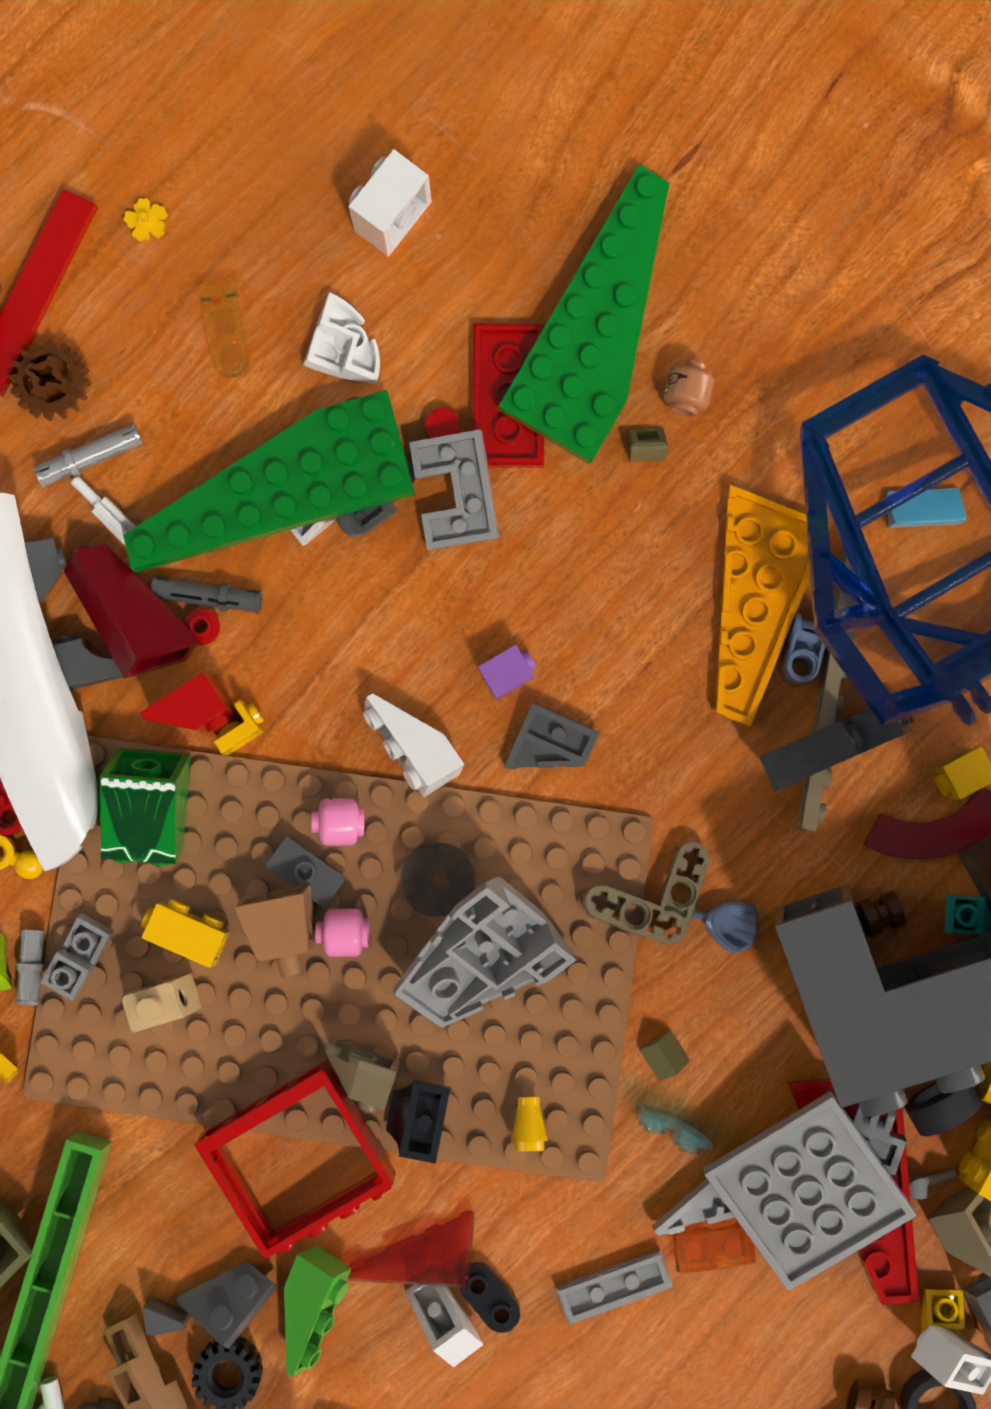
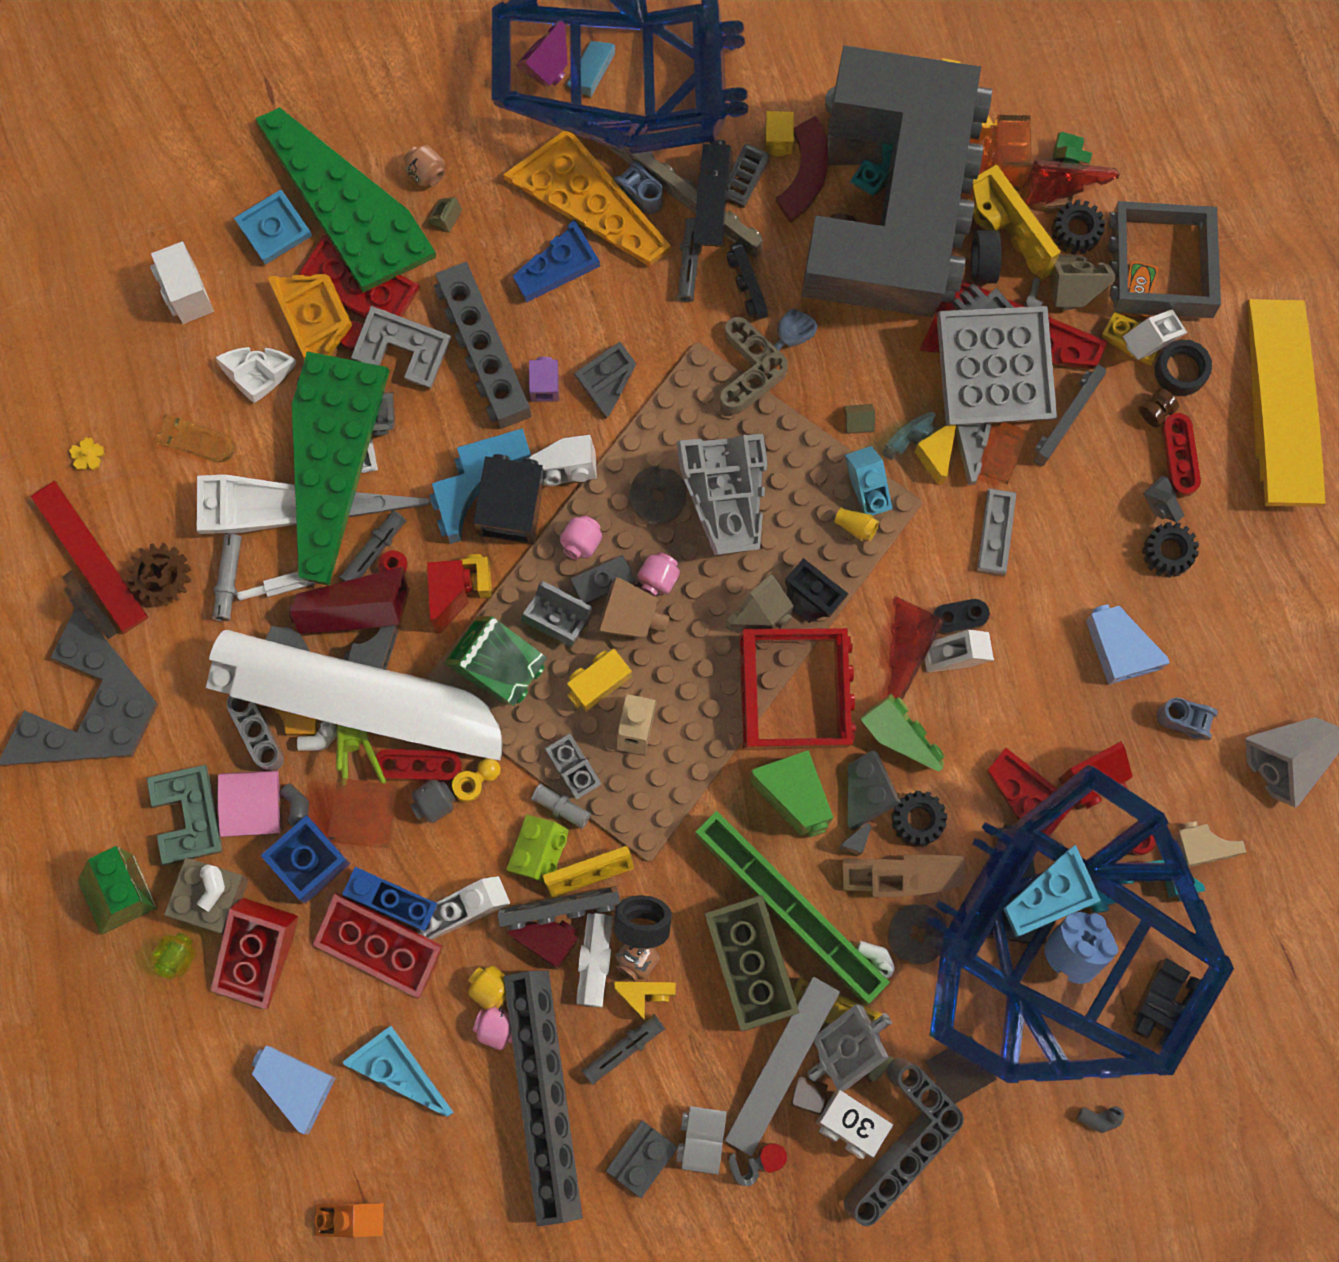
camera: 65 degrees left, 10 degrees down
(173, 1224) = (794, 793): none -> bright green slope
(178, 429) = (248, 504): none -> white plate
(235, 845) = (557, 614): none -> dark grey bracket
(334, 717) = (509, 499): none -> black slope
(363, 657) = (457, 493): none -> dark azure arch
(440, 367) = (312, 311): none -> light orange wing
(520, 262) = (273, 227): none -> dark azure plate
(556, 499) = (460, 281): none -> dark grey brick
(587, 1113) = (869, 480): none -> medium azure slope
(658, 609) = (557, 265): none -> blue wing
(669, 1171) = (936, 452): none -> yellow slope
(707, 772) = (686, 289): none -> dark grey pin
(756, 837) = (746, 281): none -> black plate
(854, 1307) = (1047, 445): none -> dark grey plate
(901, 452) = (547, 57): none -> magenta slope
(922, 763) = (754, 160): none -> dark grey slope

